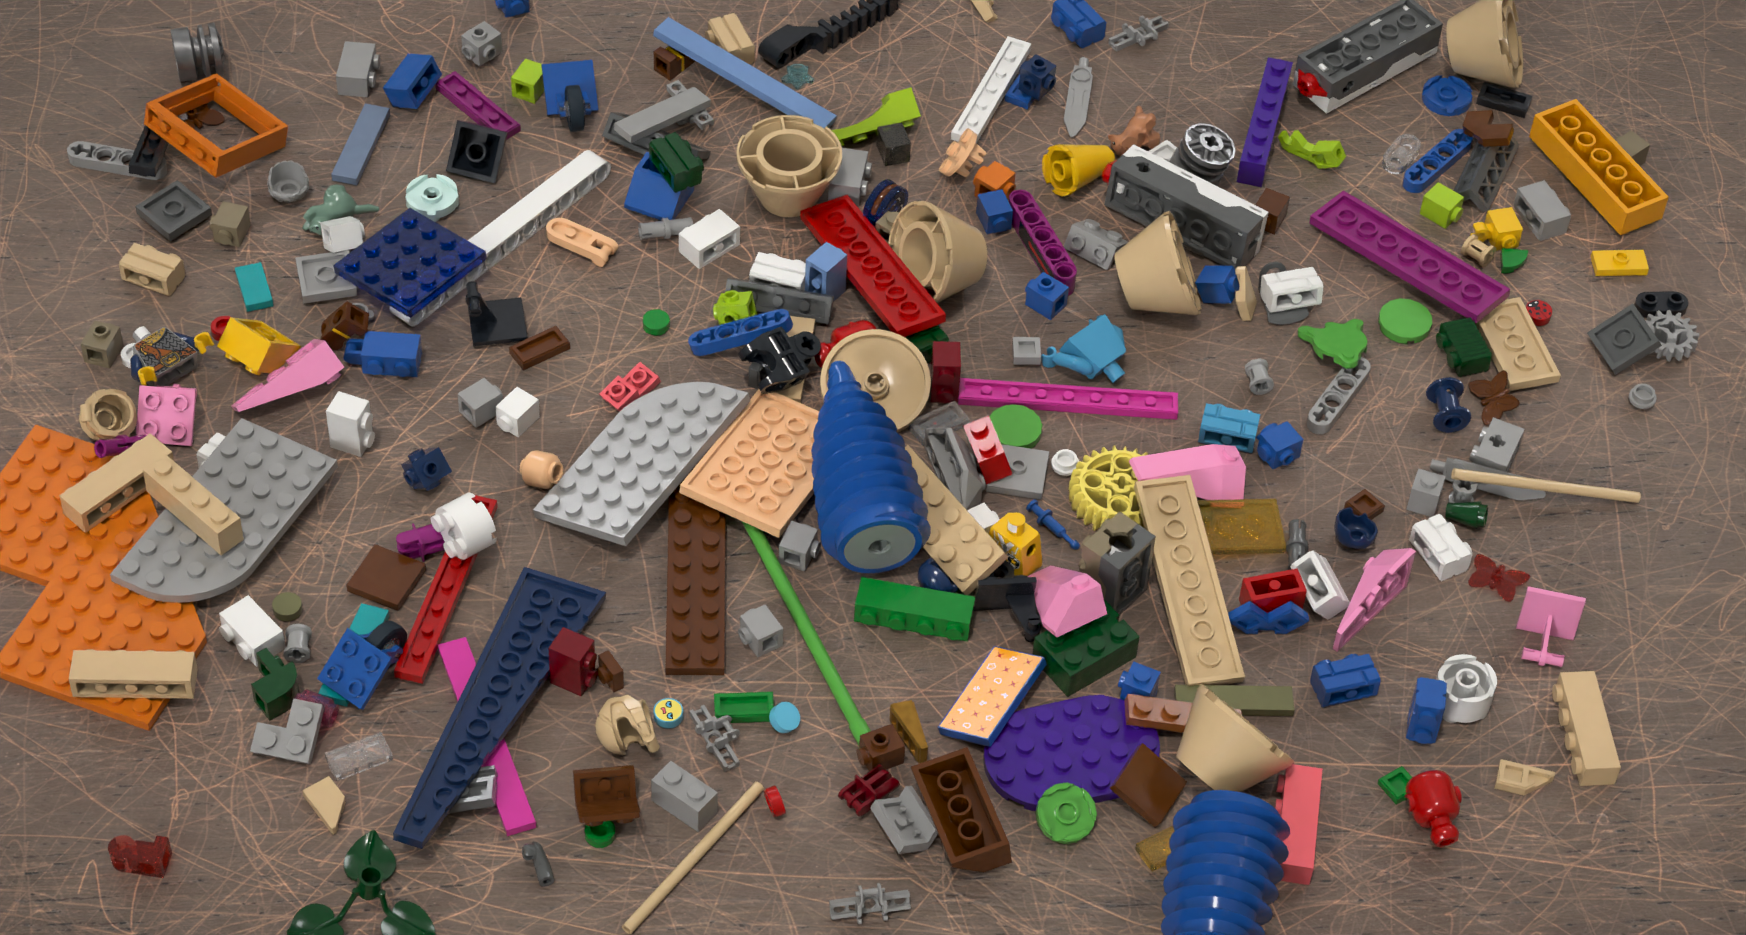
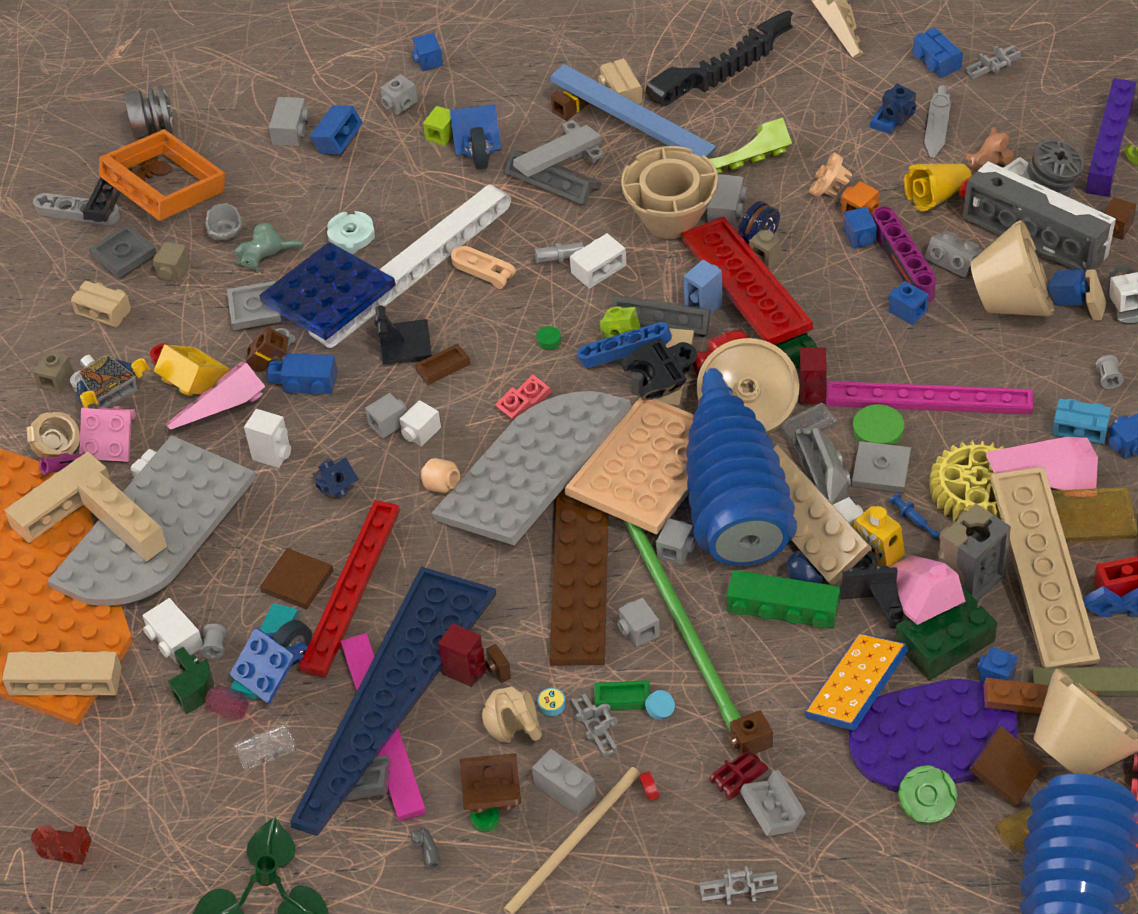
camera: 10 degrees right, 0 degrees up
(254, 287) = (190, 316): teal tile -> none
(287, 606) = (206, 607): olive tile -> none
(296, 740) = (207, 733): light grey plate -> none
(326, 802) = (234, 791): tan tile -> none
(342, 234) = (269, 267): white brick -> none
(360, 144) = (289, 187): sand blue tile -> none
(419, 542) = (330, 544): magenta arm -> none
(464, 526) = (365, 530): white brick -> none
(476, 104) = (394, 150): magenta tile -> none
(476, 151) = (390, 189): black slope -> none
(652, 194) = (554, 215): blue slope -> none
(676, 162) = (567, 192): dark green brick -> none
(778, 271) = (660, 288): white brick -> none
(797, 75) = (681, 112): clear light blue plate -> none
(893, 144) = (767, 170): clear smoke brick -> none
(907, 724) = (775, 709): pearl gold slope -> none
(938, 248) = (807, 263): tan cone -> none
(962, 812) = (827, 795): reddish brown slope -> none
(987, 449) = (852, 447): red brick -> none
(992, 88) = (858, 116): white plate -> none
(1026, 351) = (889, 354): light grey plate -> none
(1064, 462) = (925, 457): white plate -> none
(1091, 351) = (950, 352): dark azure torso -> none

